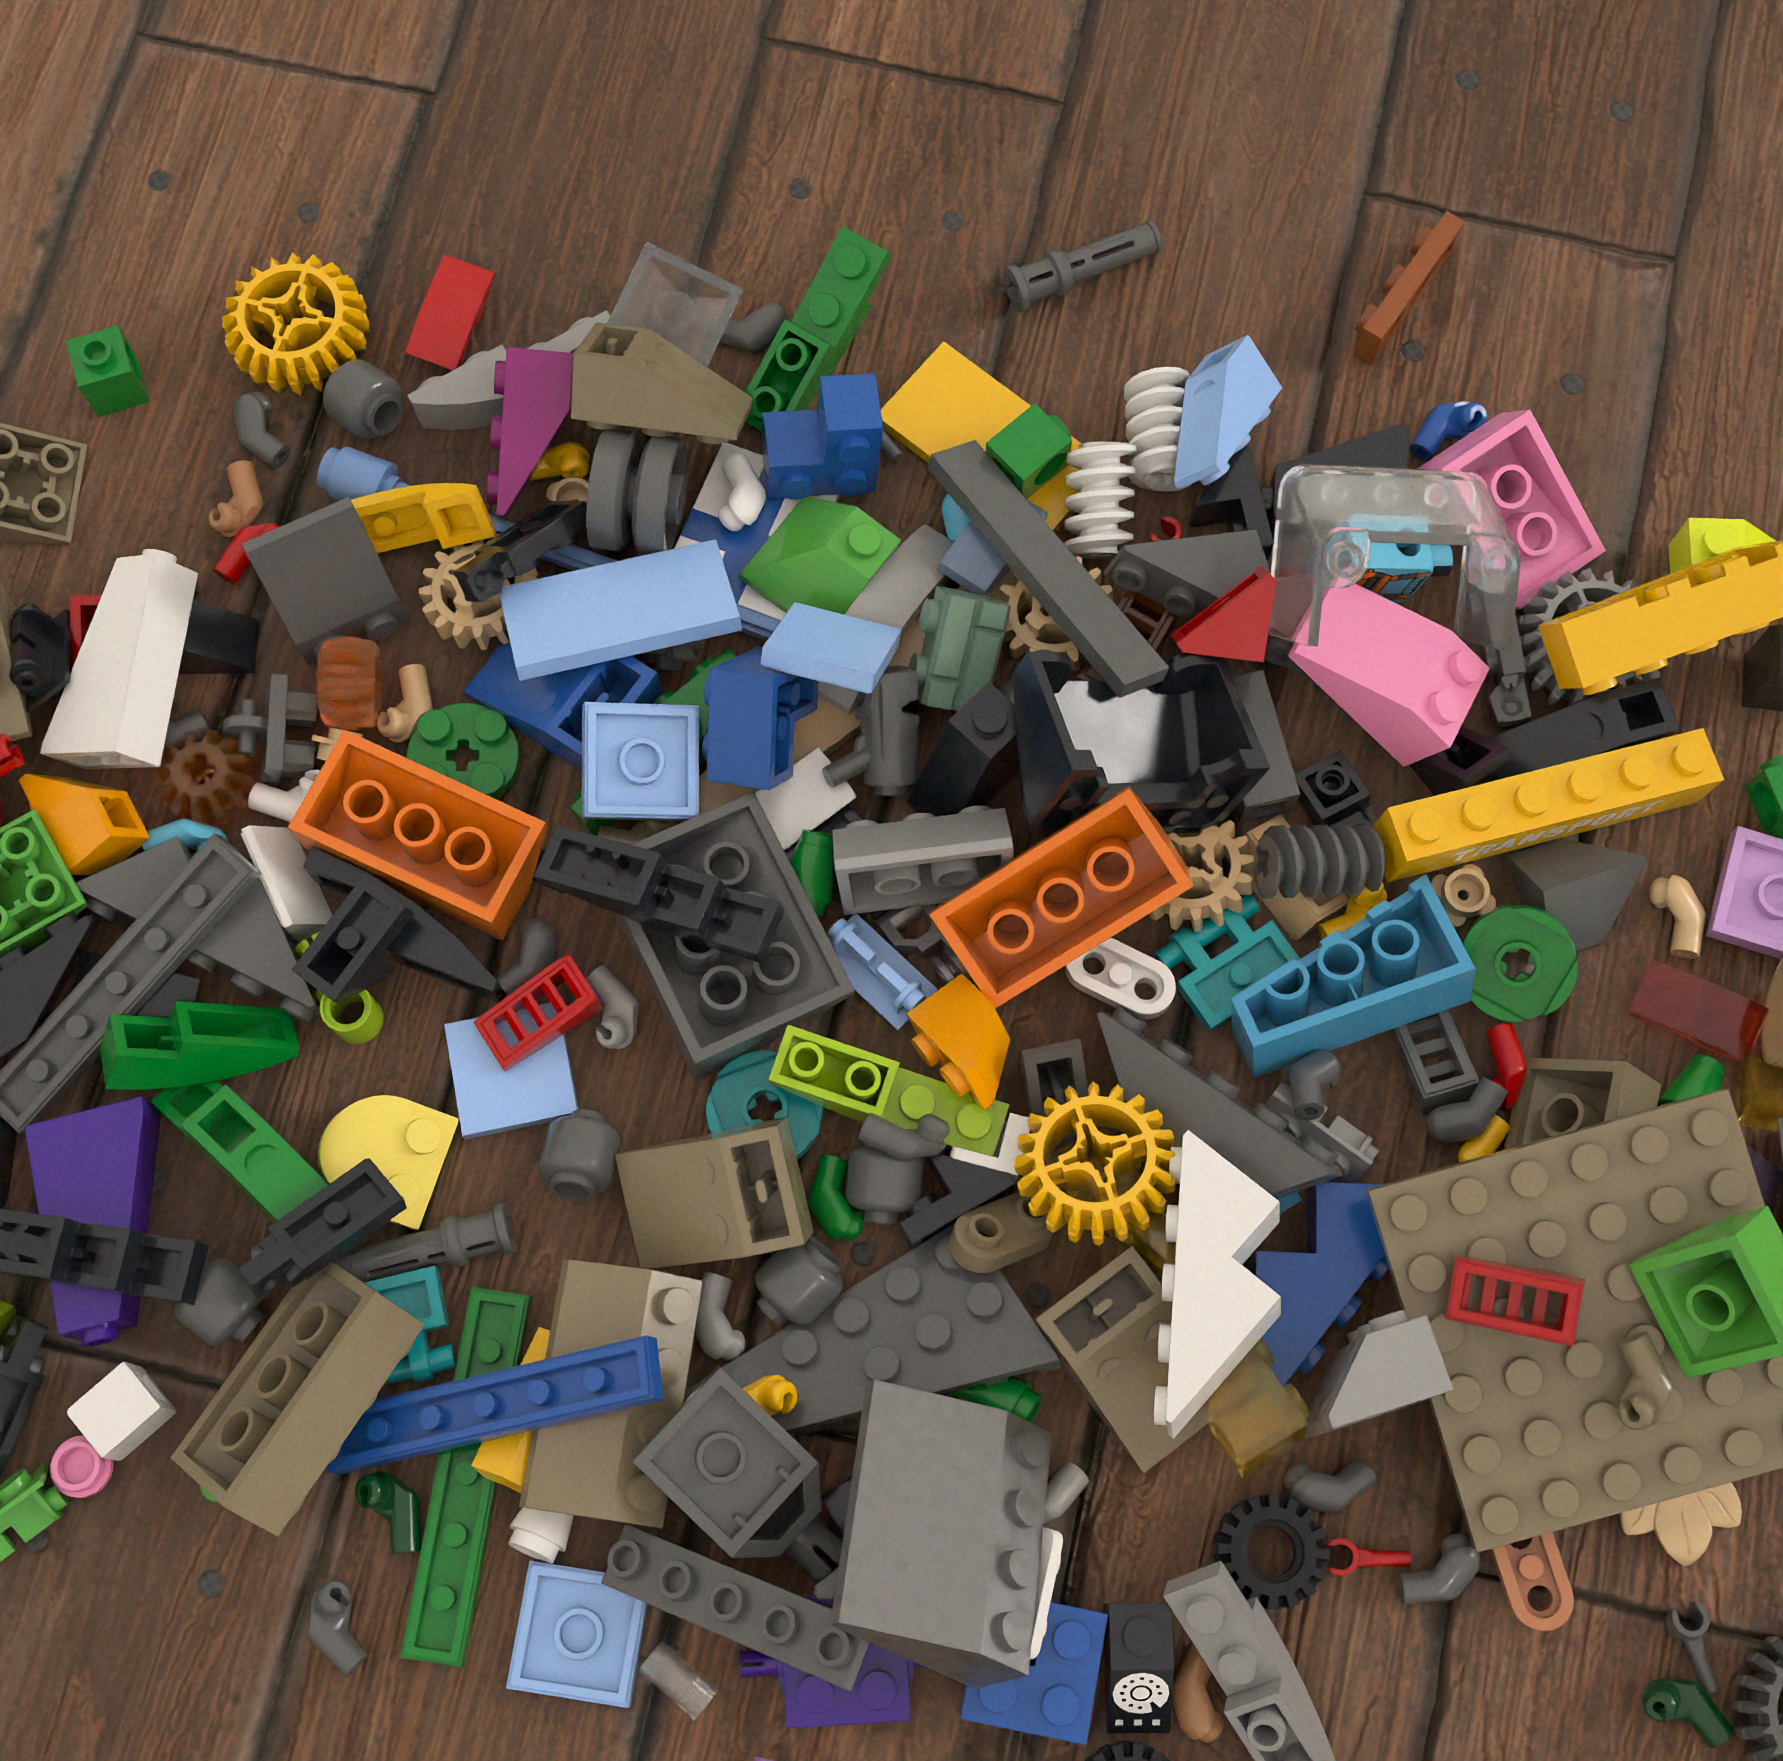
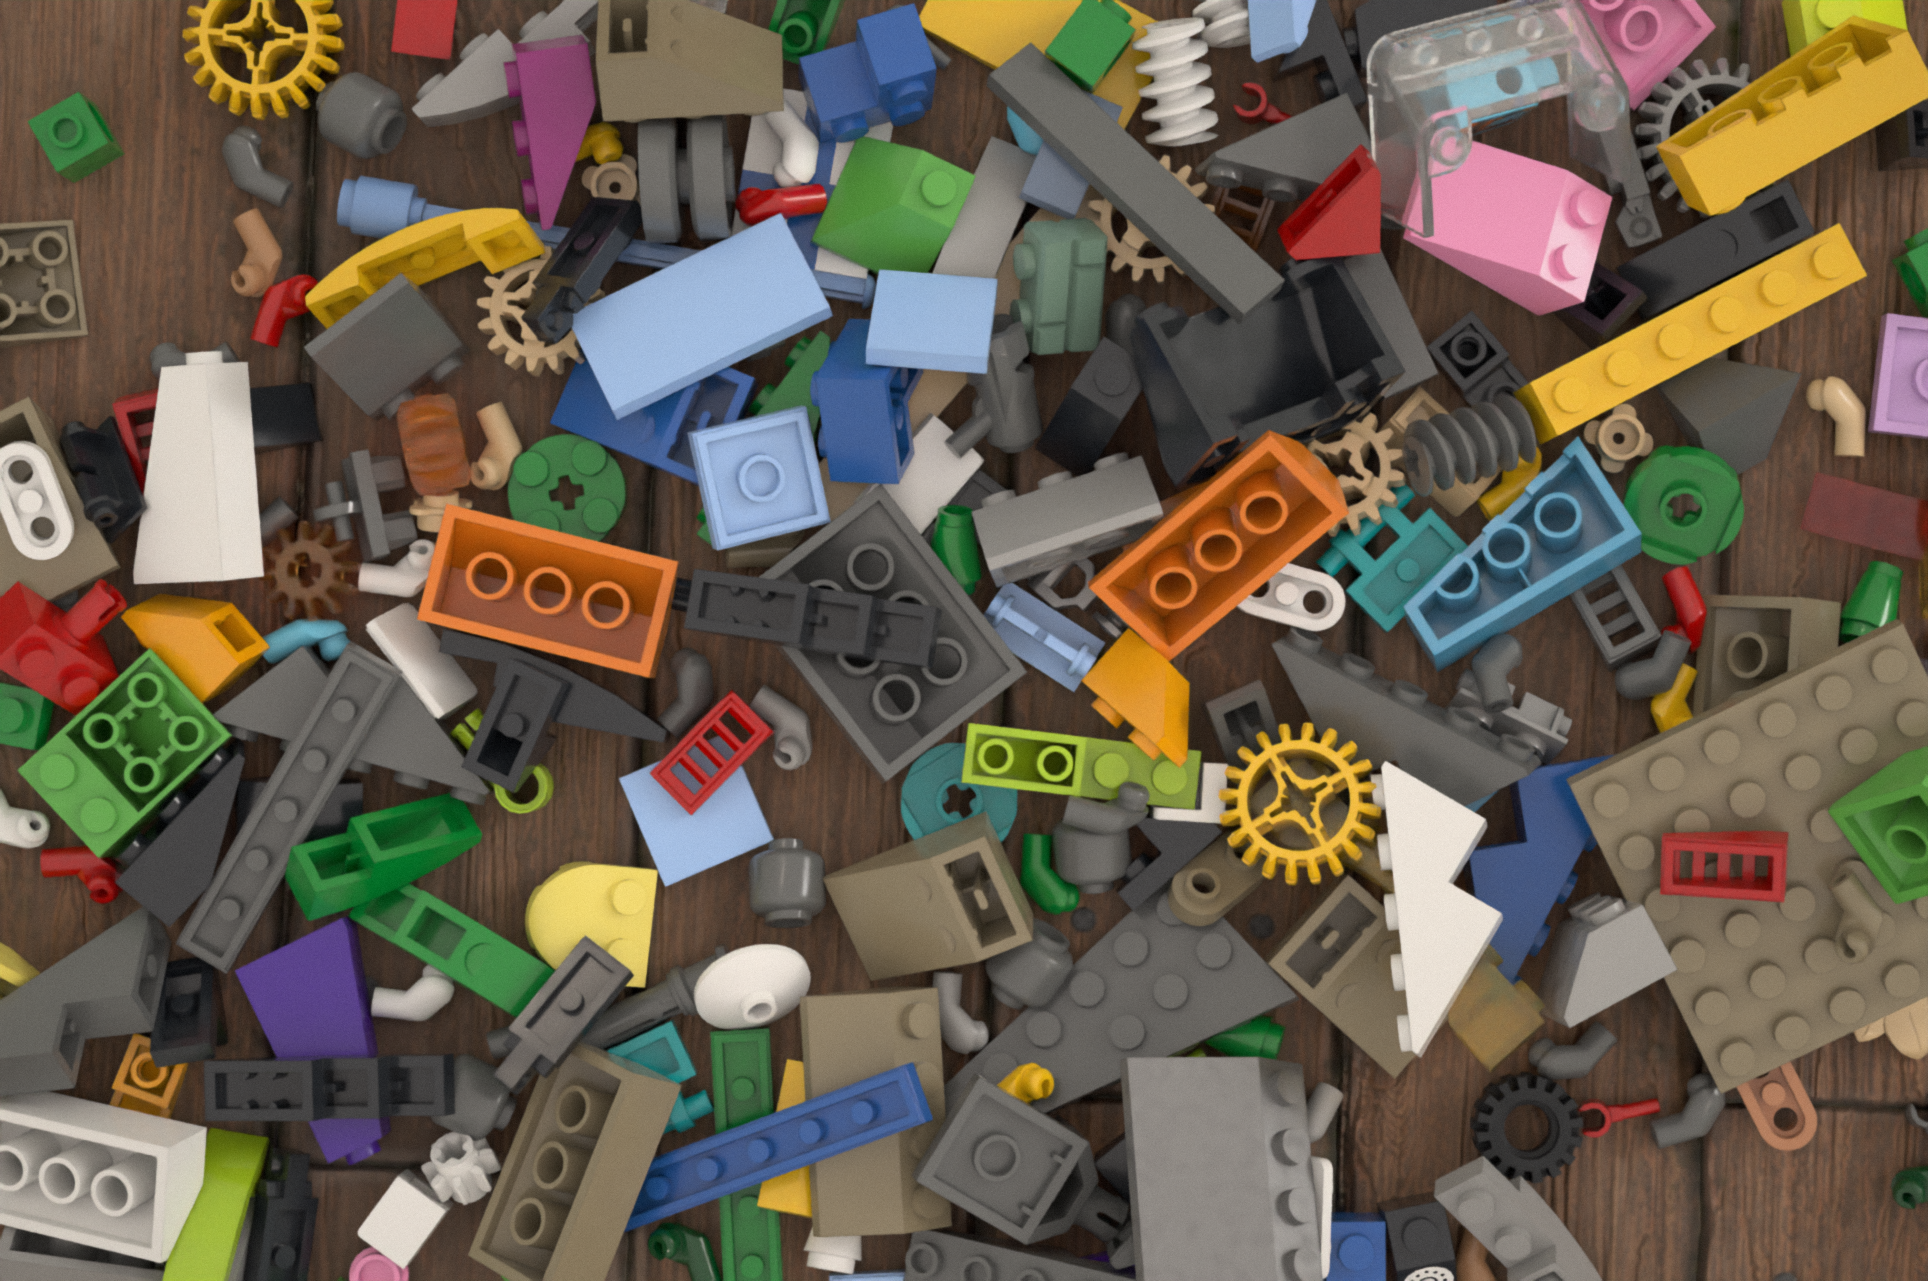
camera: 15 degrees left, 15 degrees up
(189, 1370) = (460, 1168): none -> white gear
(197, 1200) = (416, 1003): none -> white arm
(519, 1245) = (751, 986): none -> white dish
(727, 534) = (791, 201): none -> red arm

